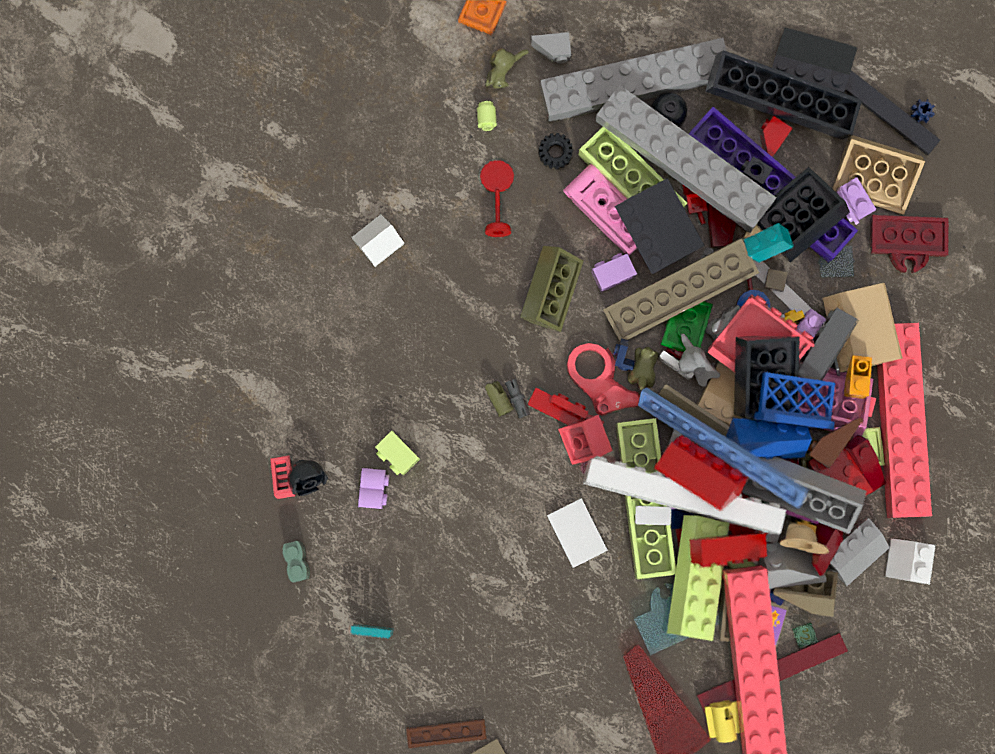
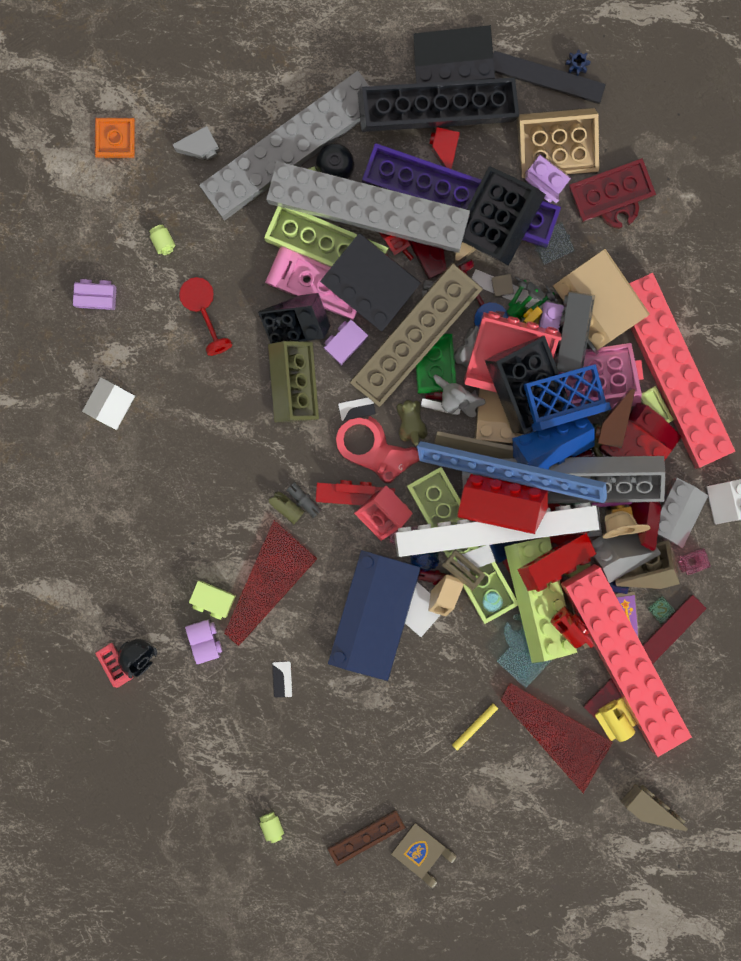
camera: 20 degrees left, 5 degrees up
(295, 557) = (157, 735): sand green brick -> none
(363, 686) = (271, 827): none -> yellowish green brick
(369, 630) = (257, 774): teal tile -> none
(406, 140) = (94, 295): none -> lavender brick
(429, 554) = (282, 679): none -> sticker
(462, 454) = (275, 572): none -> clear red wing
(501, 63) = (155, 182): olive animal -> none
(539, 529) = (374, 615): none -> dark blue slope
(555, 140) = (239, 235): black tyre -> none
(577, 233) = (296, 319): none -> black slope
(589, 671) = (474, 727): none -> light yellow bar
(599, 336) = (356, 409): none -> sticker
(606, 499) = (426, 561): none -> clear blue head
(609, 518) = (431, 576): none -> dark red pin
(612, 537) = (445, 595): none -> tan slope
(620, 352) = (387, 424): dark blue bracket -> none
(636, 522) = (459, 575): none -> dark tan tile
(653, 561) = (492, 602): none -> clear light blue tile
(717, 615) = (571, 628): none -> red piece
(764, 170) = (448, 186): black brick -> none
(768, 243) = (479, 257): teal brick -> none
(804, 295) = (518, 309): none -> plant
(858, 377) = (615, 349): light orange slope -> none
(860, 603) = (700, 558): none -> clear pink brick

